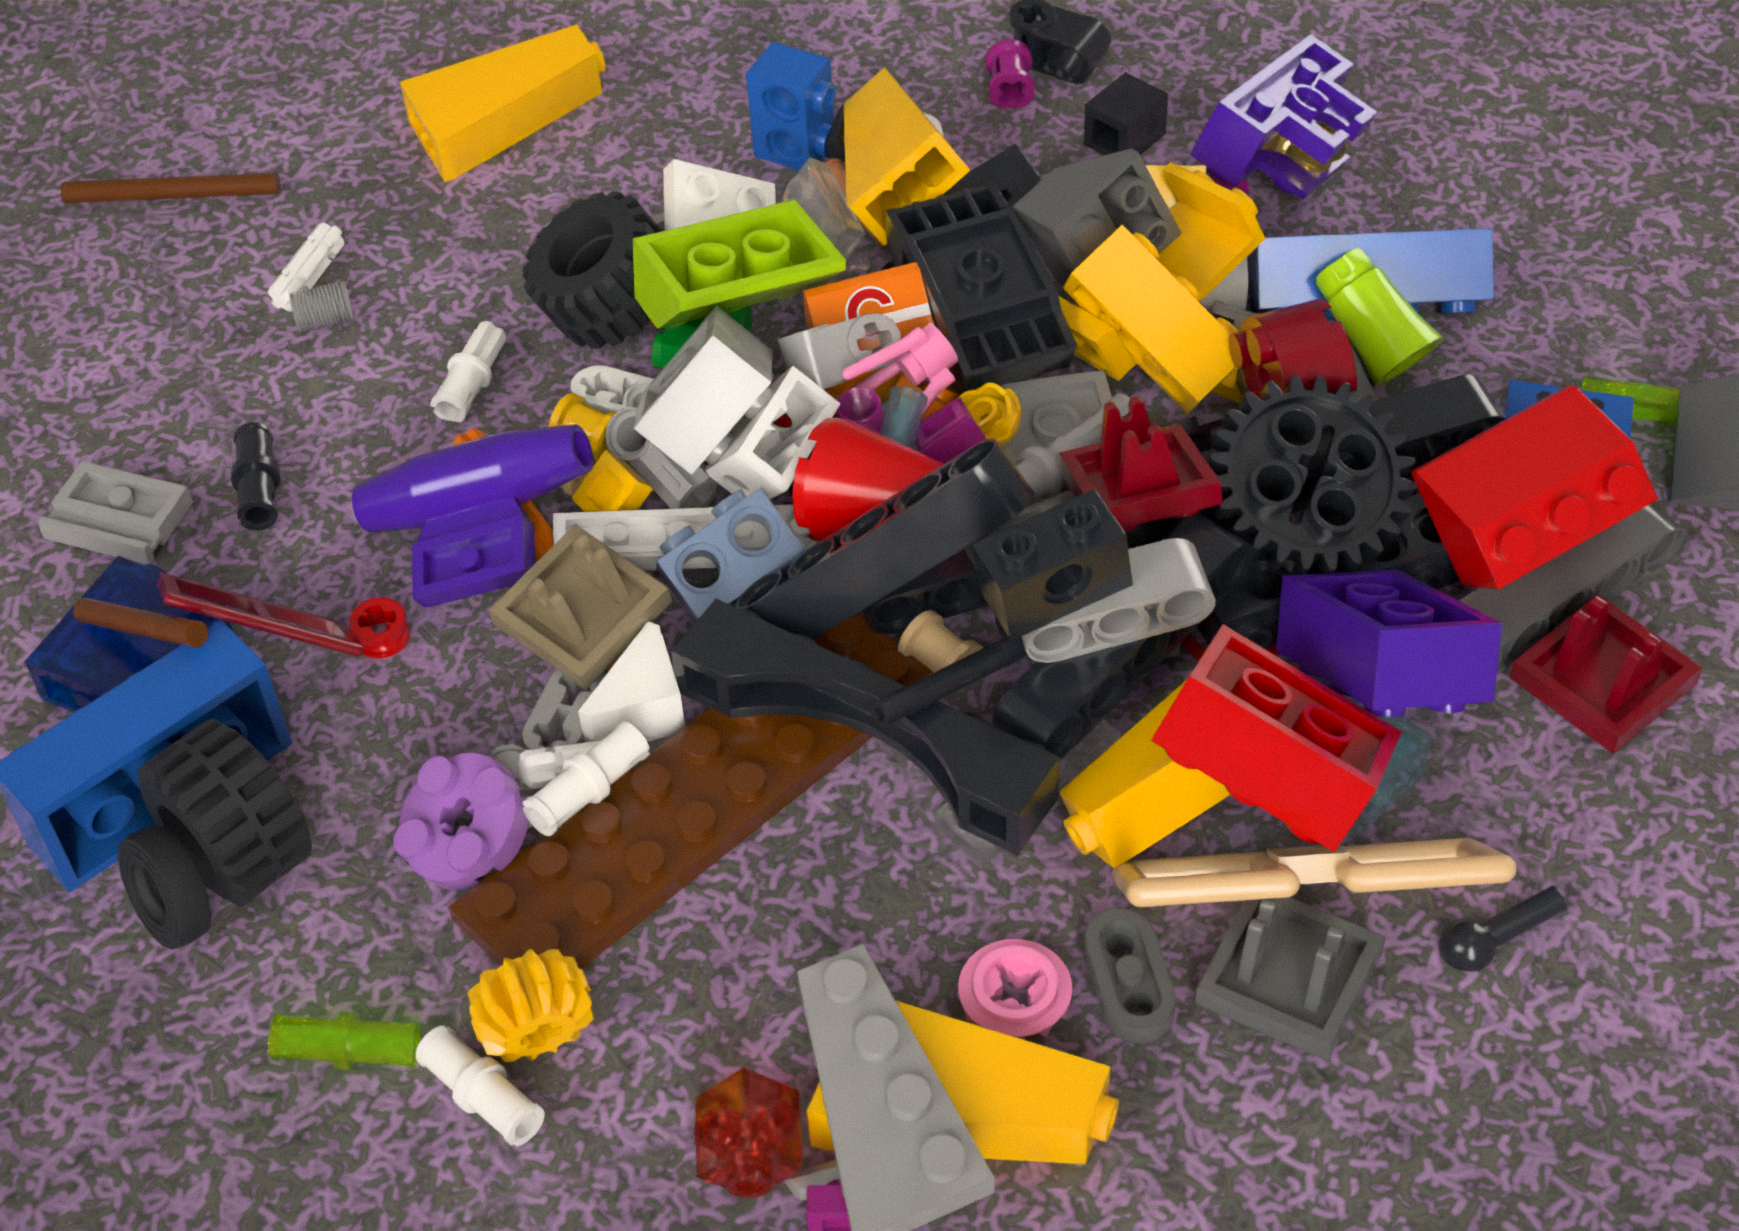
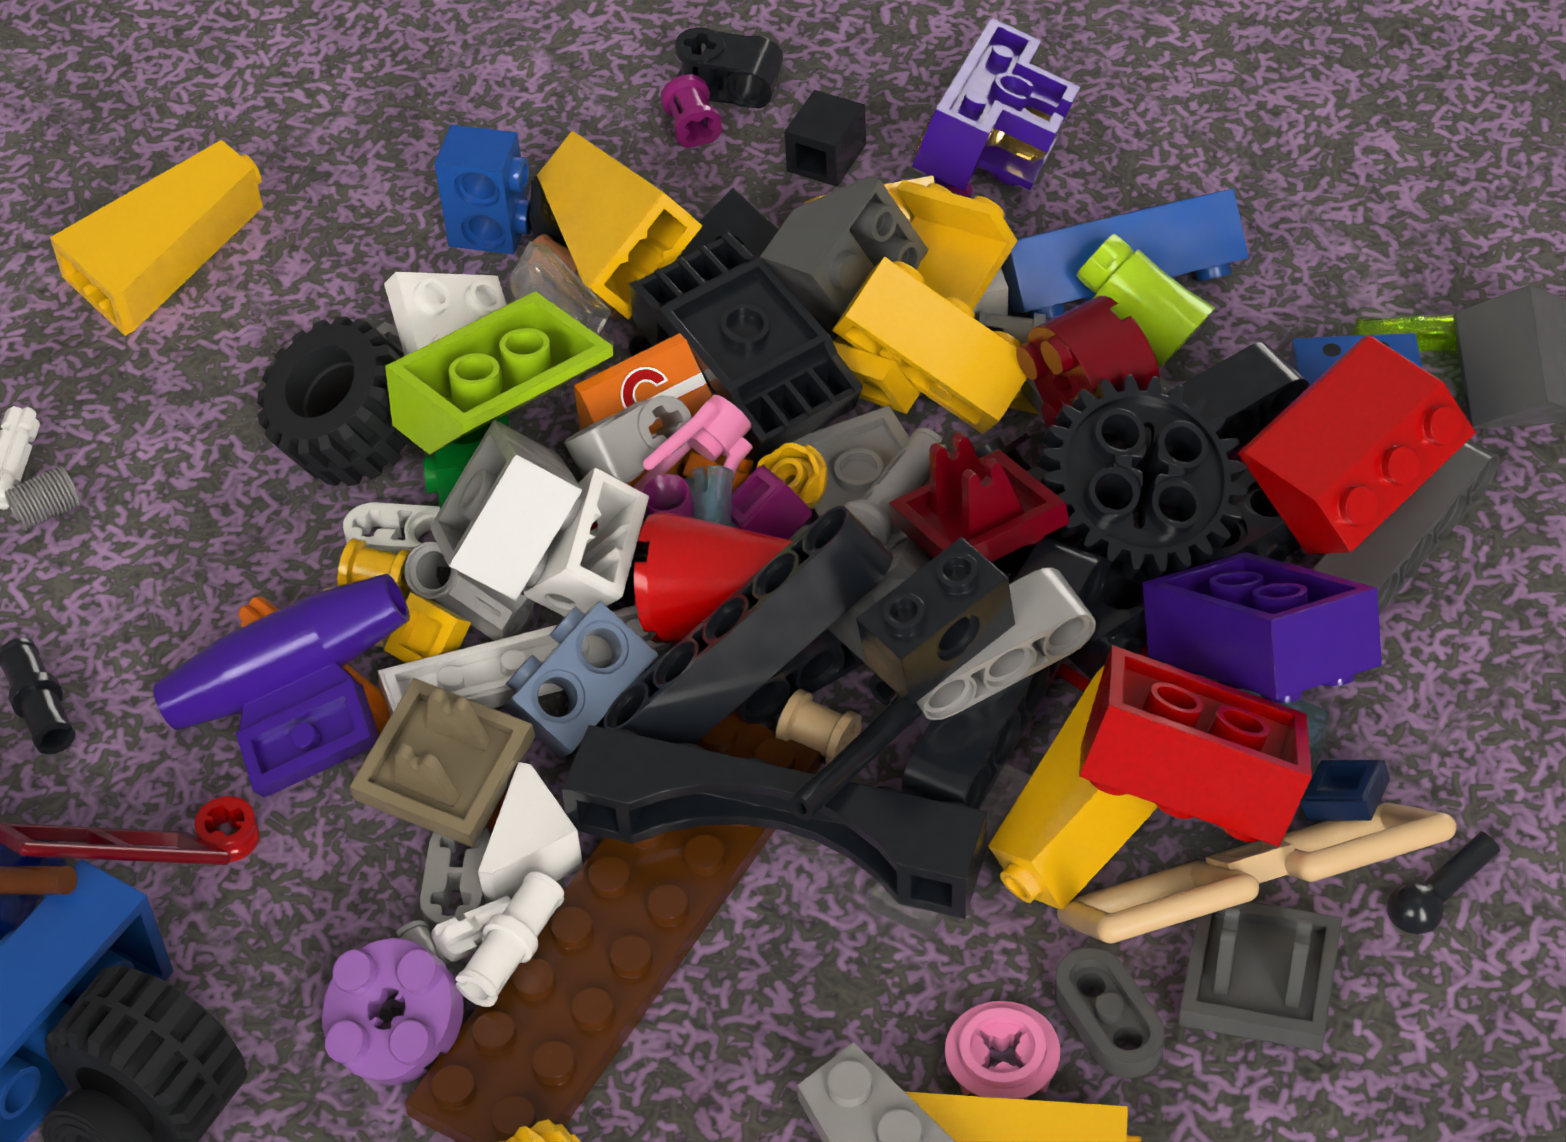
camera: 15 degrees left, 0 degrees up
(468, 373) = (228, 538): white axle -> none
(1429, 816) = (1345, 790): none -> dark blue tile
(1605, 673) = (1465, 612): dark red plate -> none

